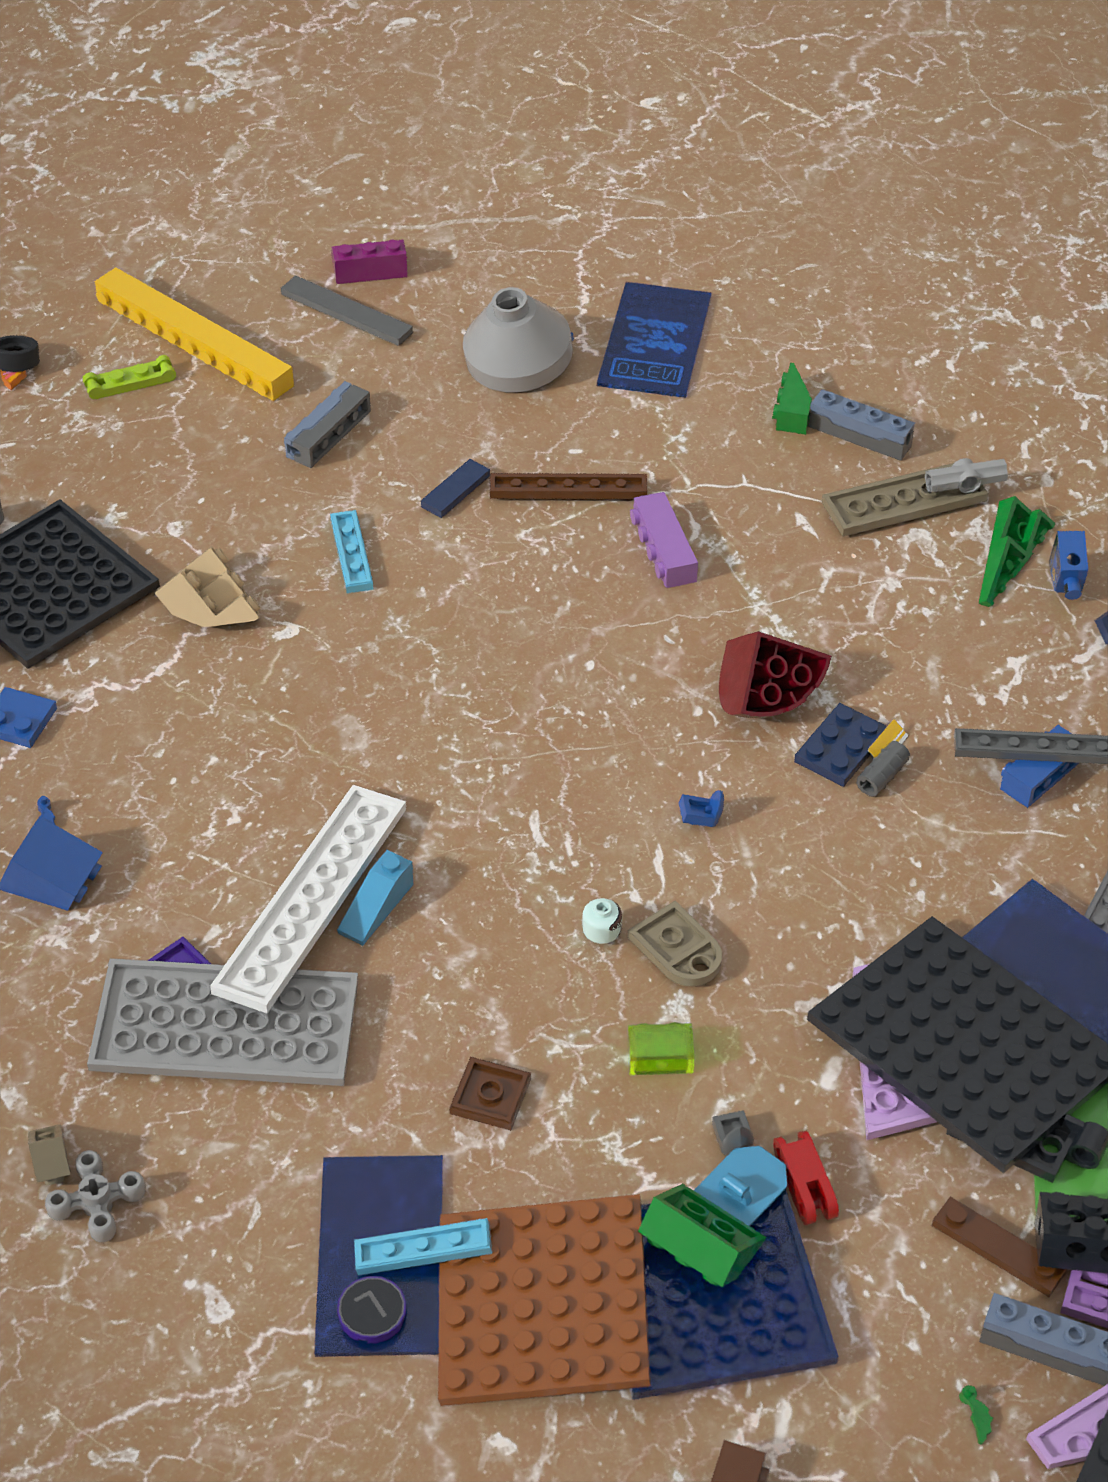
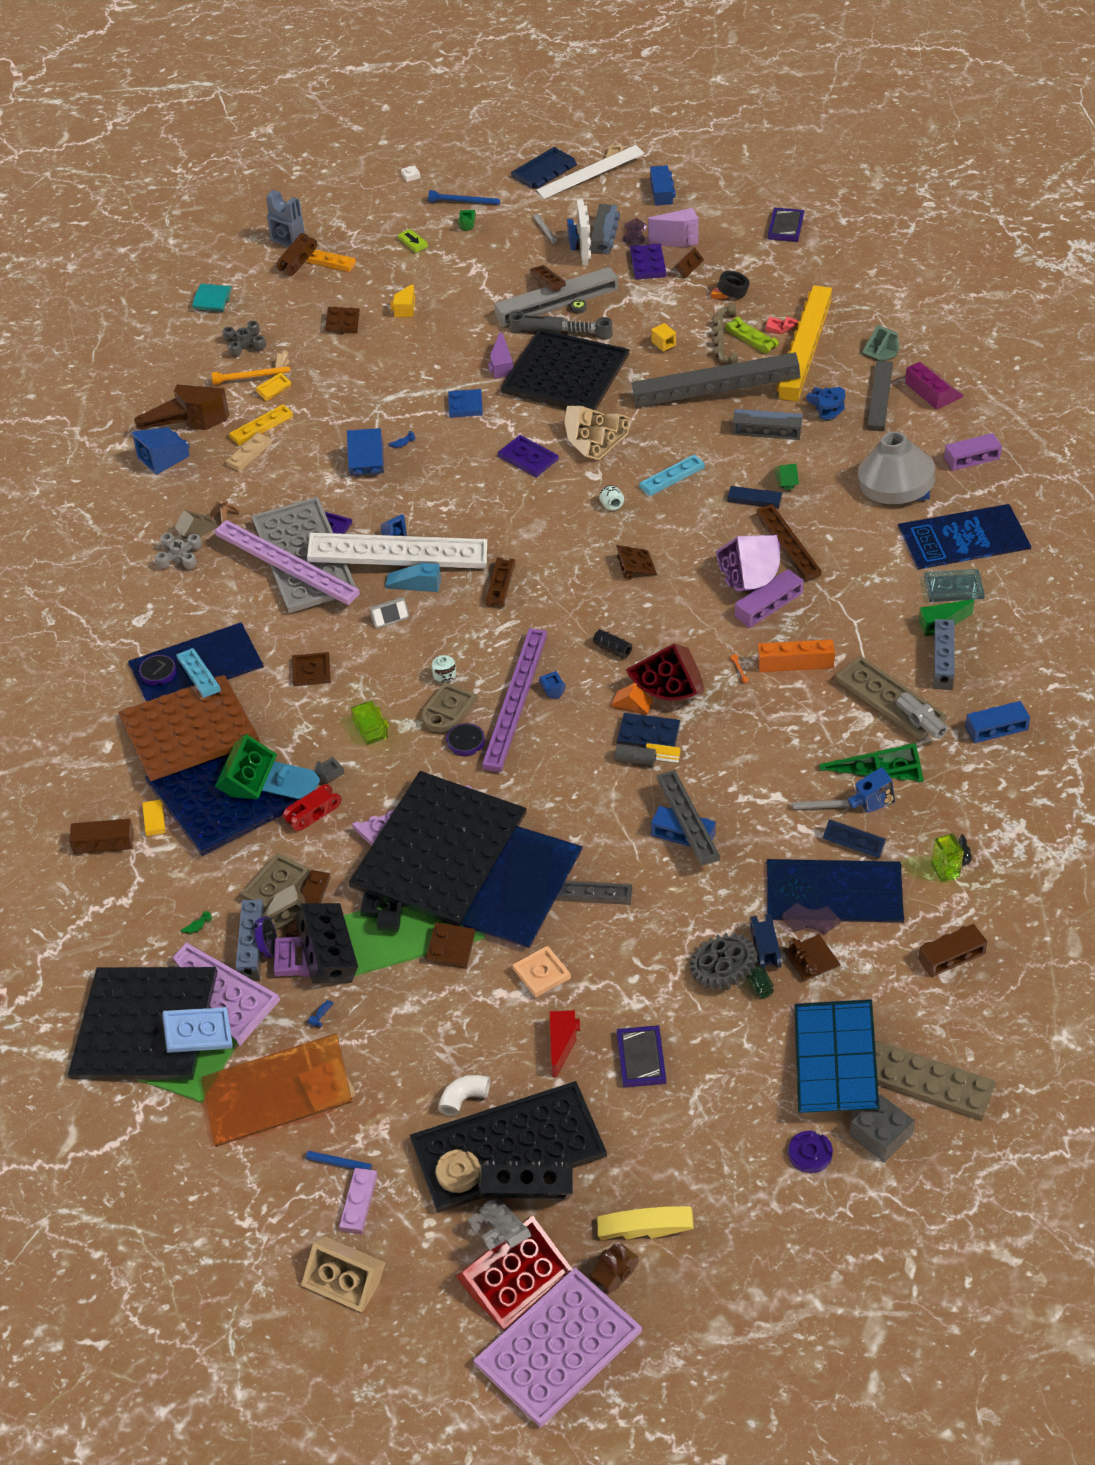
camera: 70 degrees right, 0 degrees up
(38, 1100) = (222, 508): none -> medium nougat plant
(66, 456) = (663, 337): none -> yellow brick
(113, 410) = (719, 334): none -> dark tan bar
(130, 348) = (779, 326): none -> coral slope
(193, 685) = (528, 456): none -> dark purple tile
(210, 437) = (716, 379): none -> dark grey brick
(241, 1044) = (287, 562): none -> lavender plate
(254, 271) = (882, 344): none -> sand green slope
(256, 884) = (394, 526): none -> blue slope
(330, 354) = (826, 400): none -> blue hinge
(361, 623) = (611, 497): none -> light aqua head
(433, 953) = (389, 612): none -> slope
(442, 441) = (787, 476): none -> green slope
(449, 801) = (500, 582): none -> reddish brown plate
(496, 639) = (635, 560): none -> reddish brown hinge
(518, 266) = (972, 451): none -> medium lavender brick
(601, 529) = (749, 561): none -> brick
(655, 721) = (612, 643): none -> black axle
(706, 863) = (514, 700): none -> medium lavender plate
(713, 1413) = (154, 817): none -> yellow tile
(737, 377) = (954, 585): none -> clear light blue tile
(747, 614) = (734, 658): none -> orange hinge
(750, 946) = (465, 739): none -> black tile
(771, 740) = (632, 699): none -> orange slope
(788, 551) = (796, 655): none -> orange brick
(941, 1275) = (274, 878): none -> dark tan plate
(995, 425) = (997, 722): none -> blue brick
(1008, 1265) = (284, 906): none -> dark tan slope
(1053, 625) = (821, 804): none -> light grey piece
(1068, 1308) = (265, 936): none -> tile

